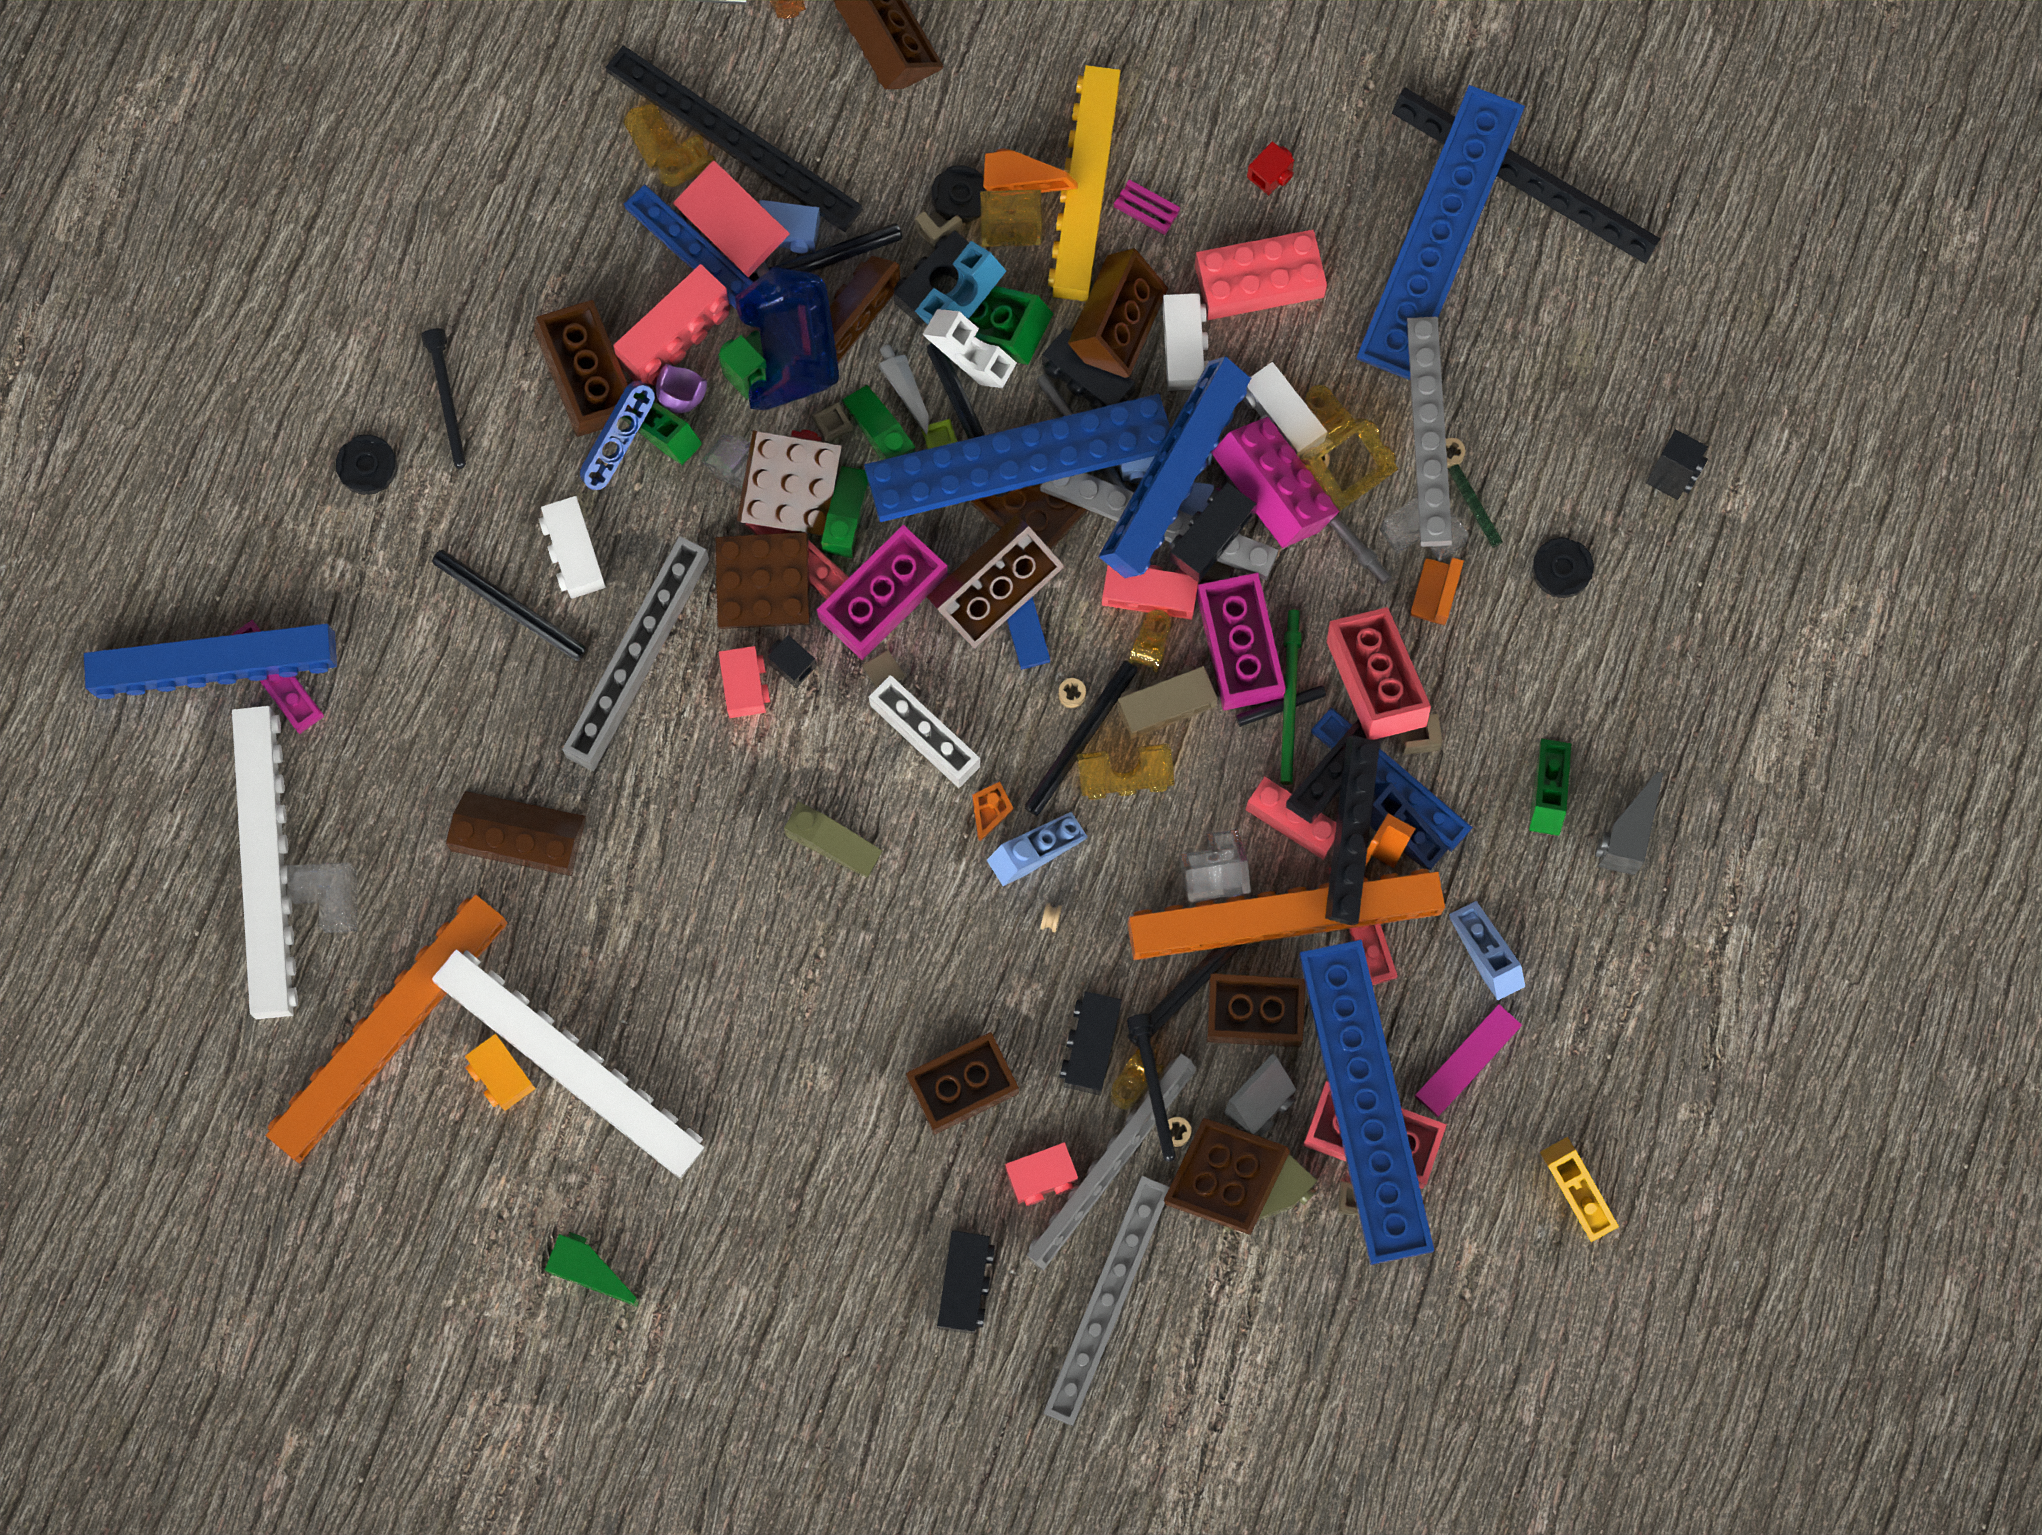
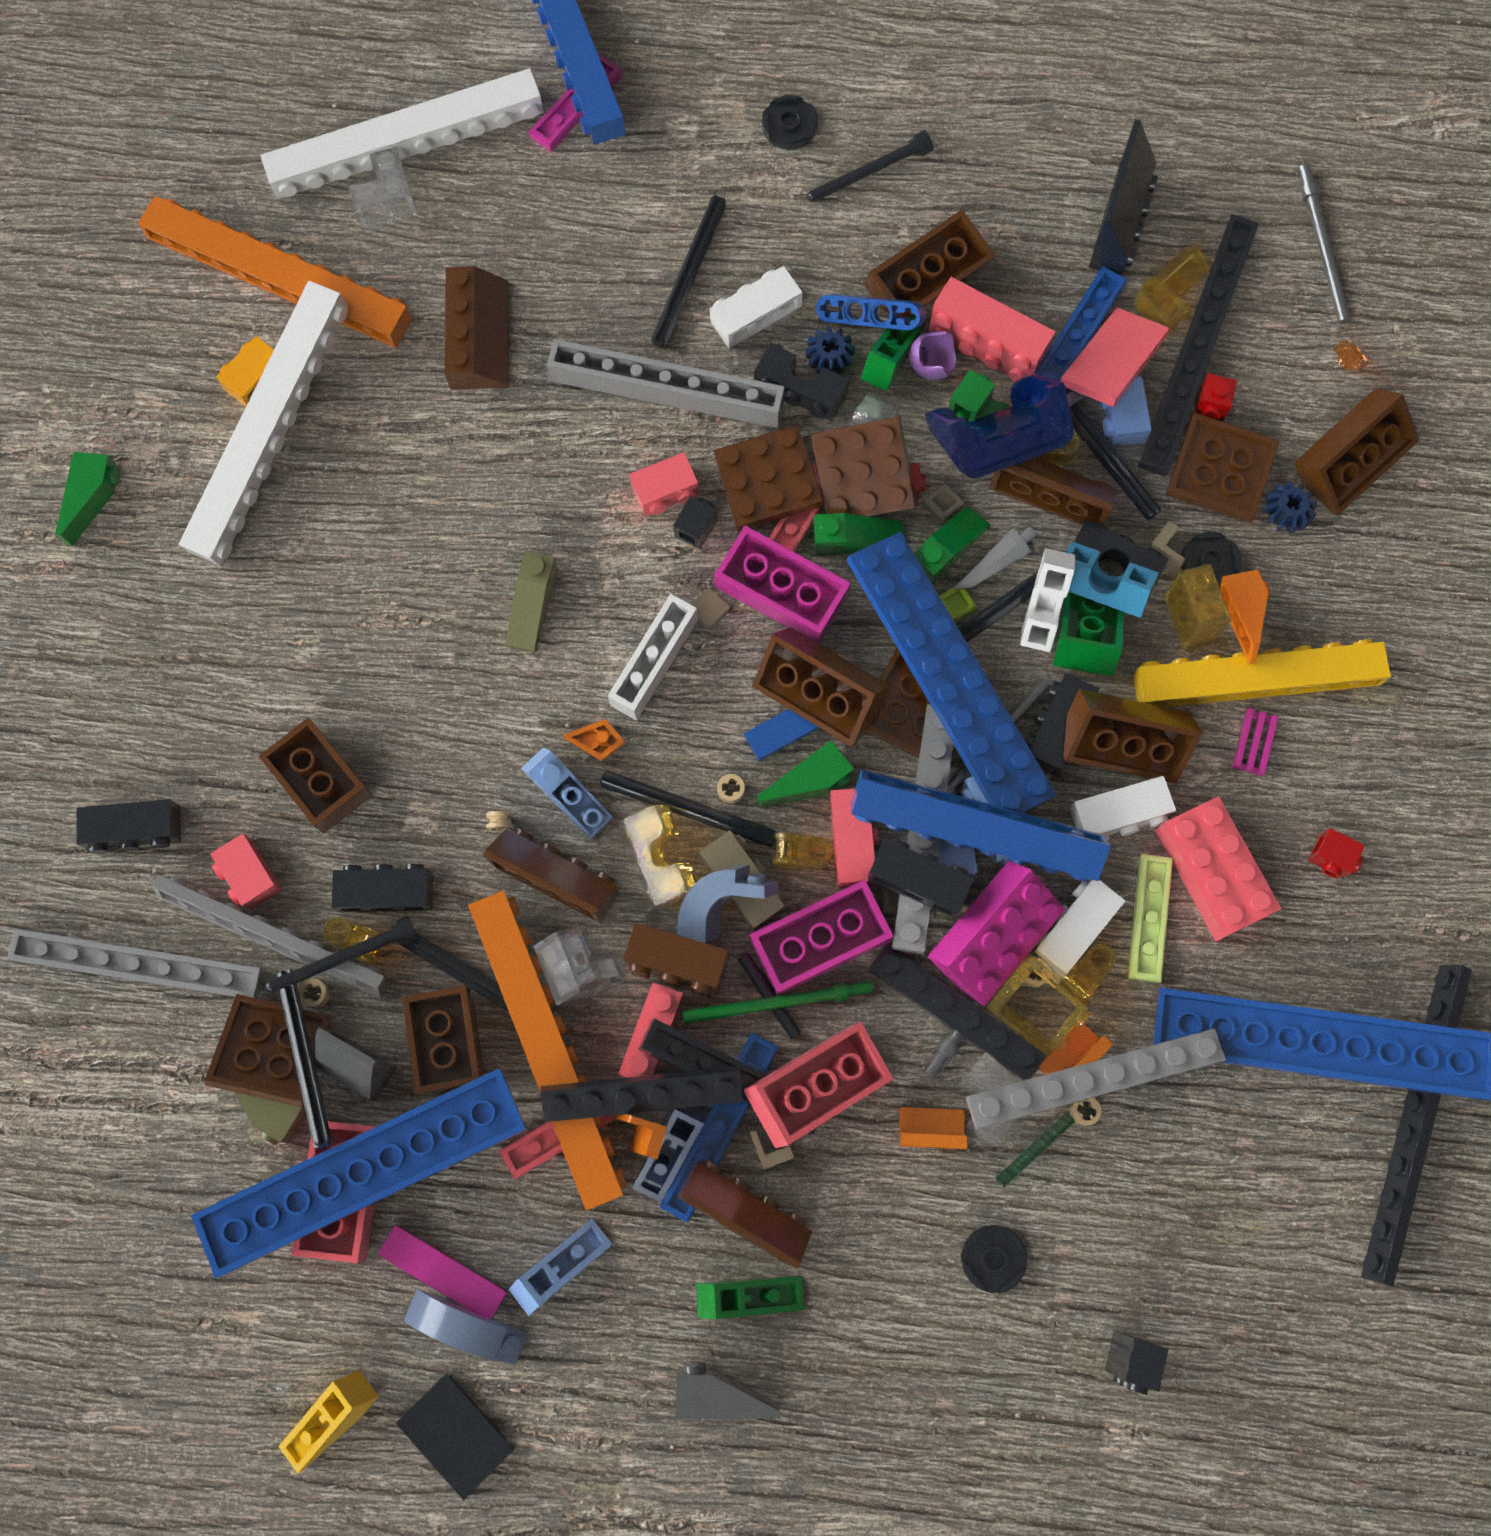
camera: 80 degrees right, 0 degrees up
(571, 166) = (1126, 204): none -> black slope
(643, 476) = (830, 351): none -> dark blue gear
(653, 544) = (820, 396): none -> black arch
(798, 139) = (1215, 397): none -> red brick
(869, 155) = (1222, 467): none -> reddish brown plate
(934, 98) = (1278, 507): none -> dark blue gear
(1080, 607) = (812, 778): none -> green slope
(1119, 875) = (552, 874): none -> reddish brown slope
(1172, 717) = (704, 901): none -> sand blue arch
(1231, 776) = (676, 960): none -> reddish brown brick
(1249, 1138) = (305, 1065): none -> black axle
(1289, 347) = (1150, 918): none -> yellowish green tile
(1338, 539) = (957, 1013): none -> black plate
(1399, 437) = (1080, 1050): none -> orange panel
(1478, 770) = (746, 1214): none -> reddish brown slope
(1522, 1046) = (464, 1329): none -> sand blue arch
(1615, 1078) = (455, 1436): none -> black tile

